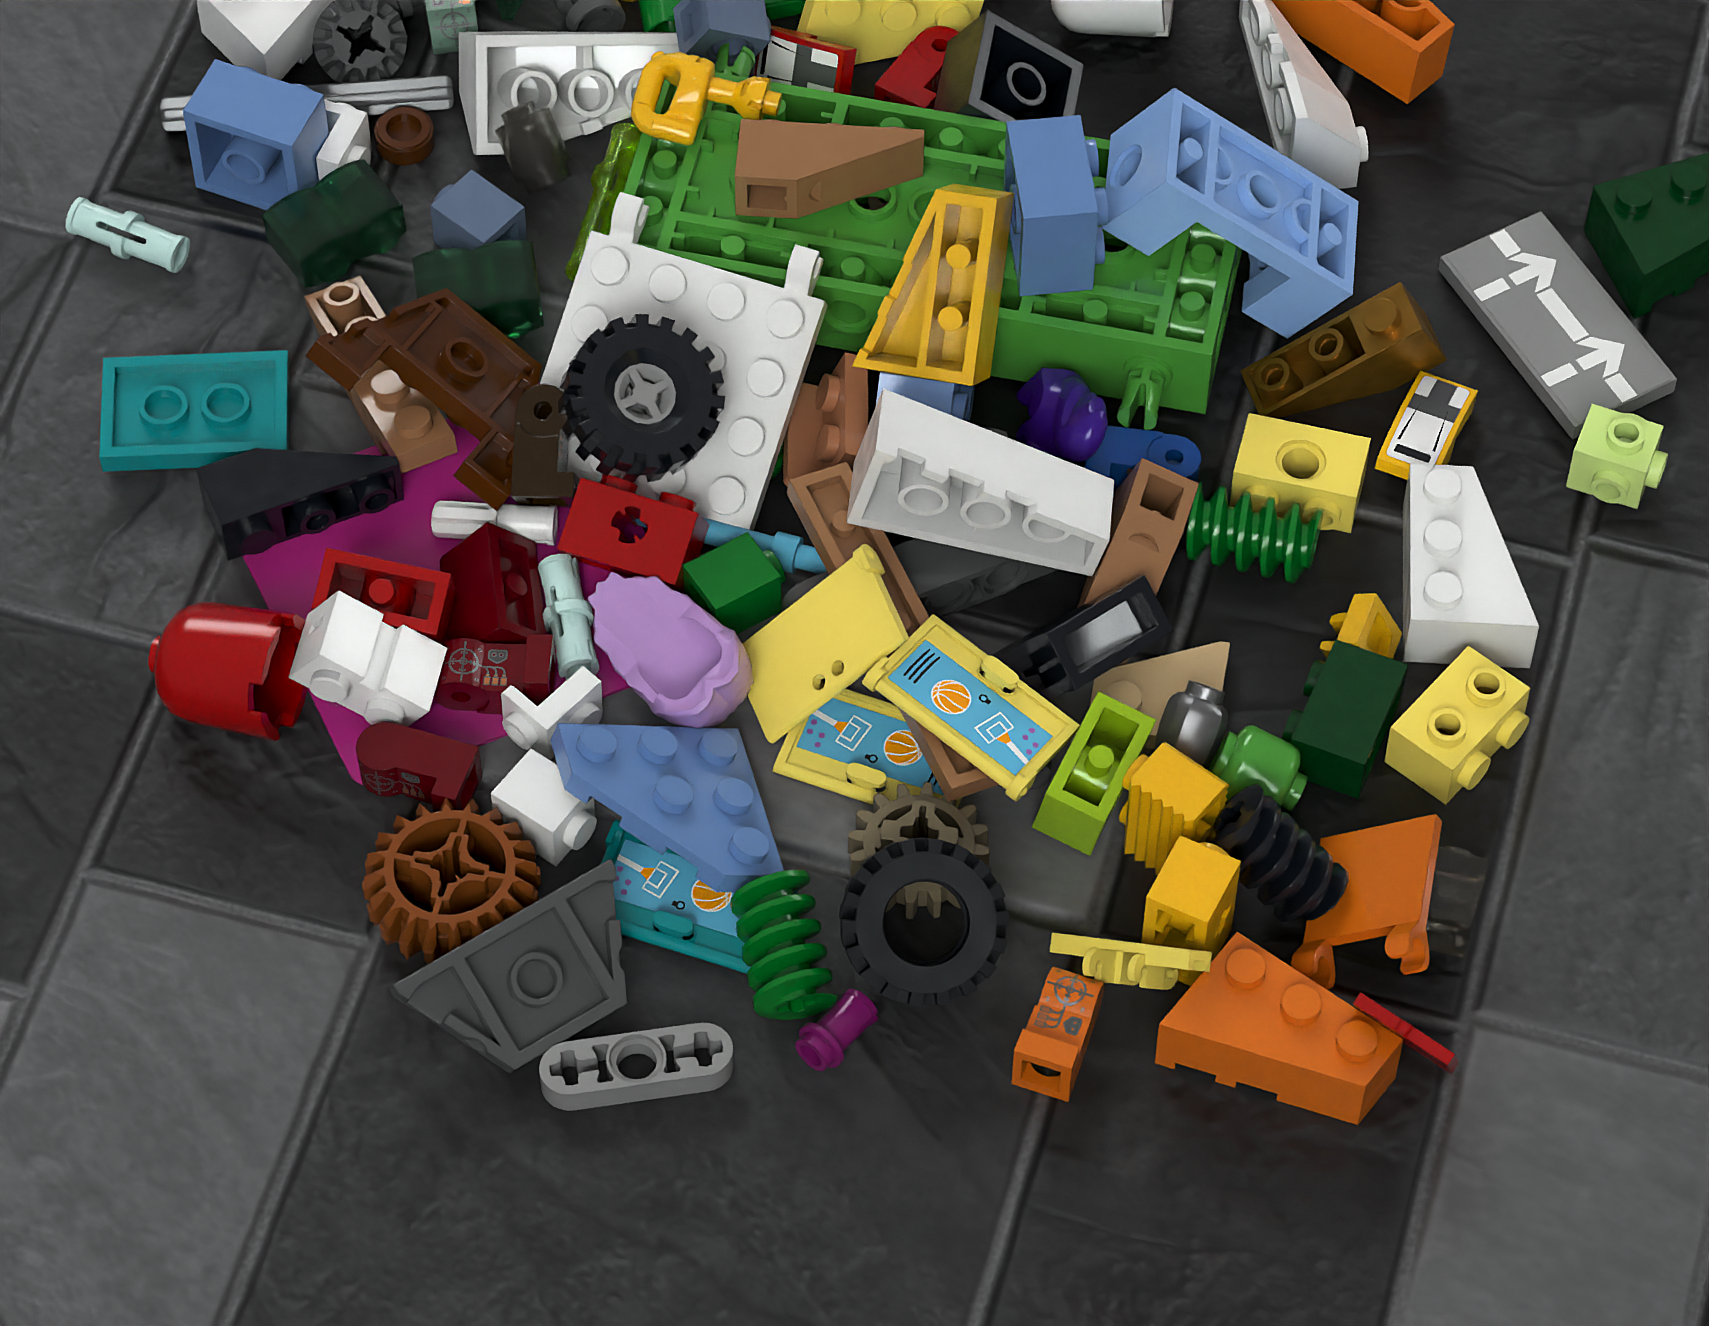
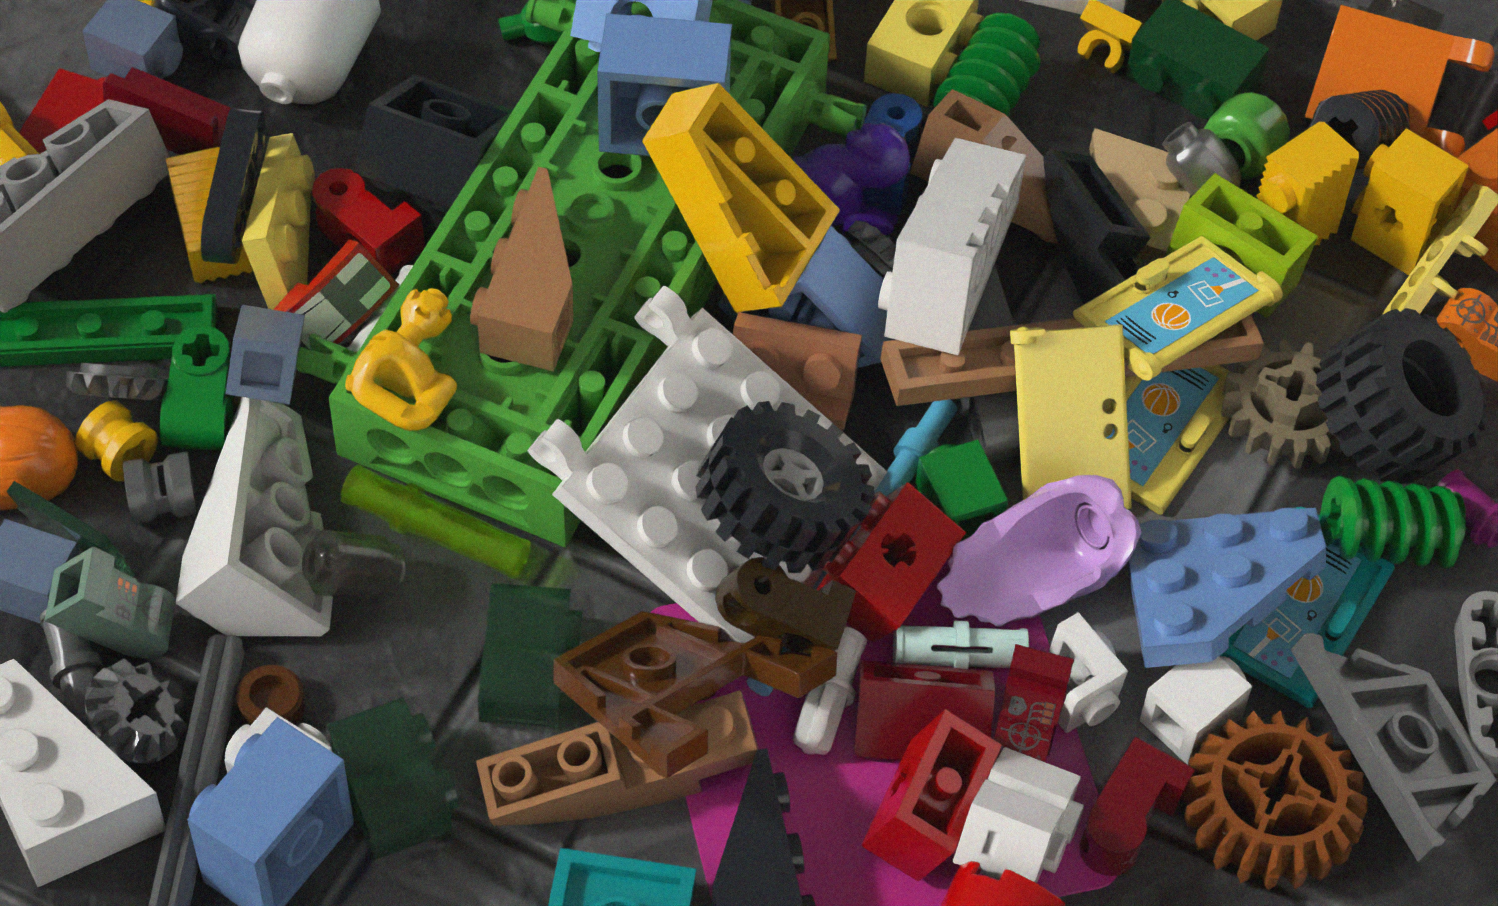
camera: 80 degrees left, 0 degrees up
(475, 214) = (431, 640): sand blue brick -> none

